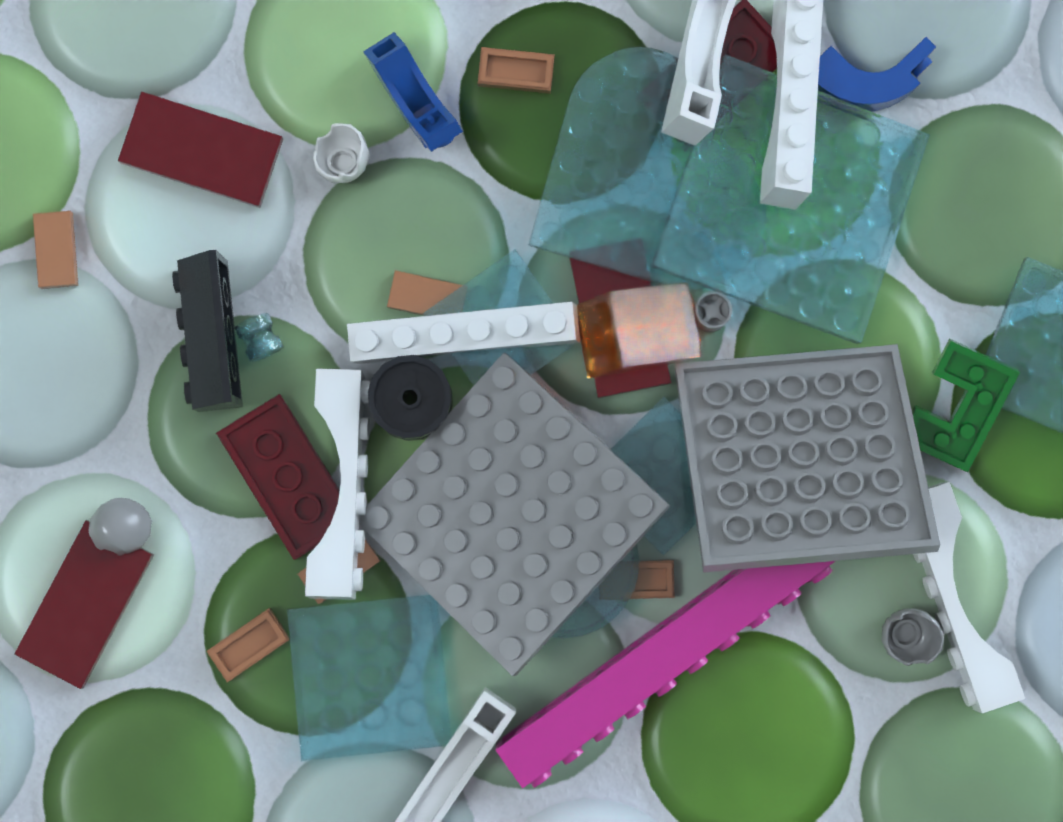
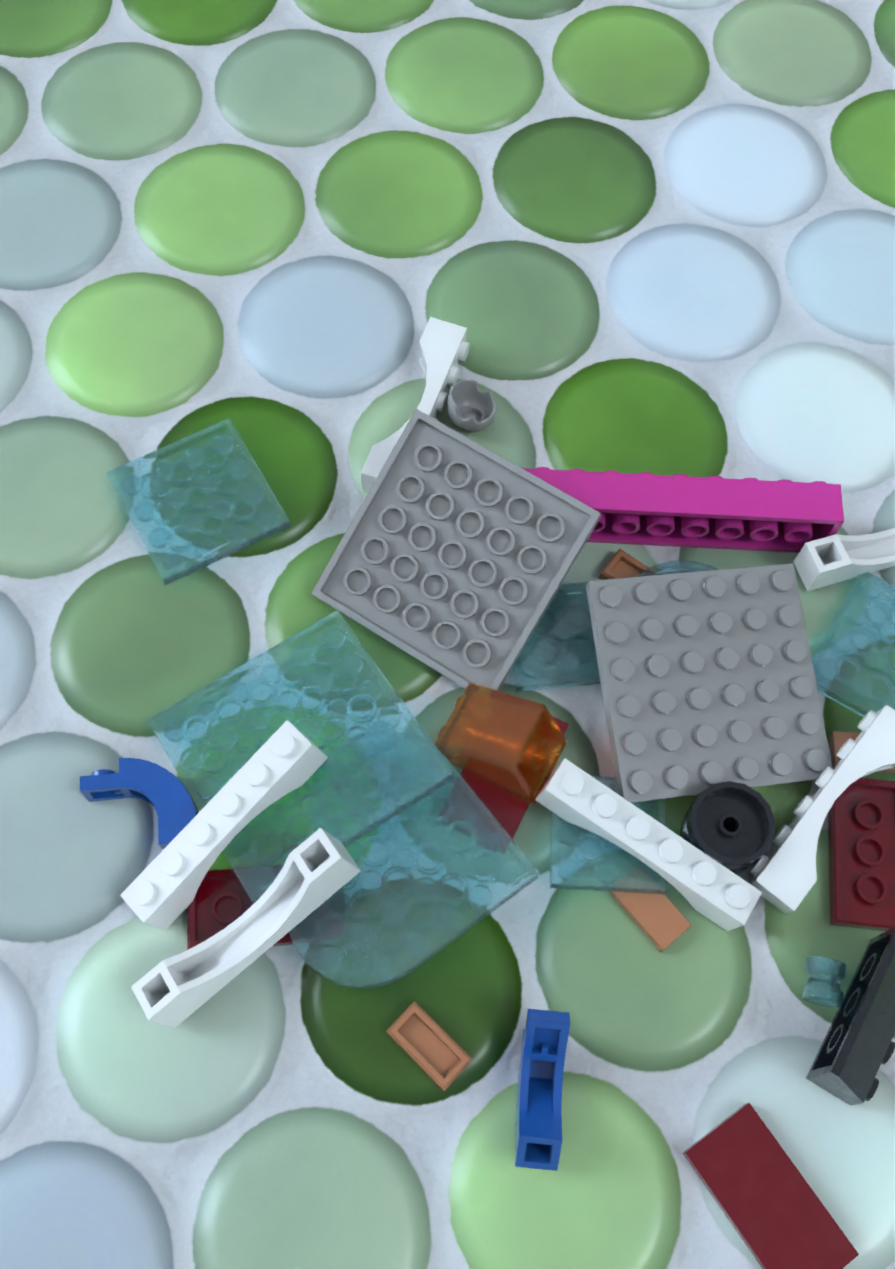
camera: 140 degrees left, 20 degrees down
(341, 154) = (644, 1088): white hair -> none
(715, 306) = (428, 710): light grey wheel -> none
(986, 390) = (280, 512): green plate -> none

